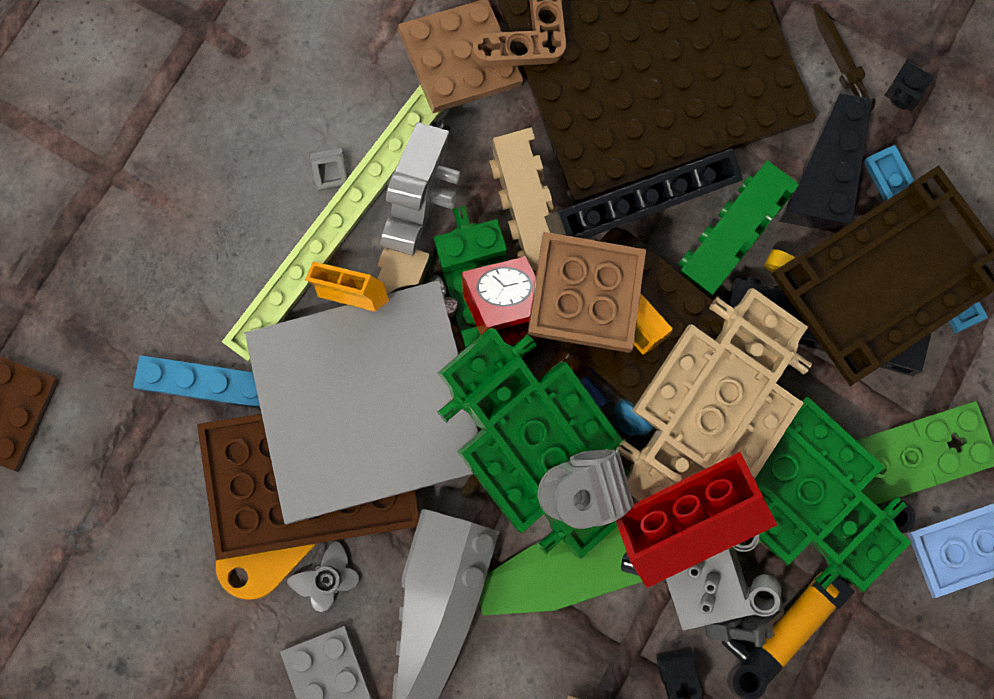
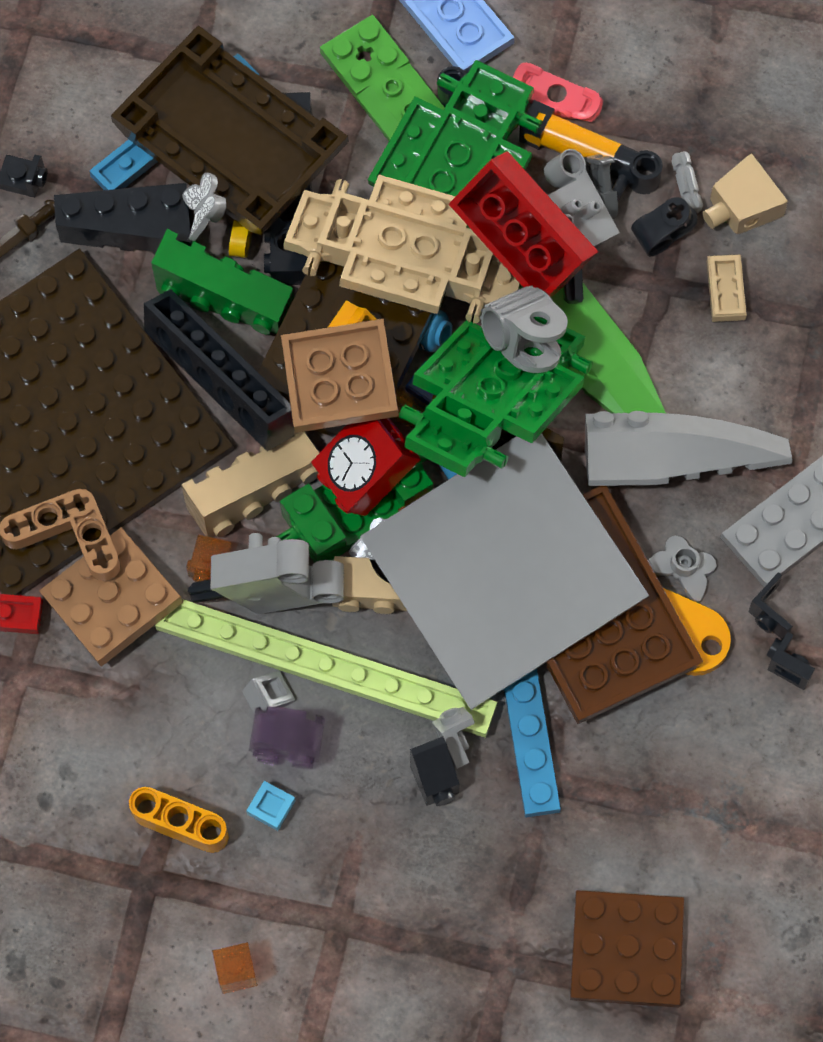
camera: 105 degrees left, 10 degrees down
(90, 68) = (235, 968): none -> clear orange brick
(188, 646) = (789, 667): none -> black bracket
(198, 283) = (434, 772): none -> black slope
(224, 139) = (270, 805): none -> medium azure plate
(228, 309) = (450, 726): none -> light grey bracket
(238, 44) = (168, 806): none -> light orange beam
(245, 637) = (764, 615): none -> black bracket
(274, 164) = (286, 736): none -> clear purple brick
(347, 286) = (395, 620): light orange piece -> none
(469, 150) = (200, 564): none -> clear orange bracket
(814, 230) = (205, 204): none -> light grey animal
(879, 602) = (579, 102): none -> coral piece

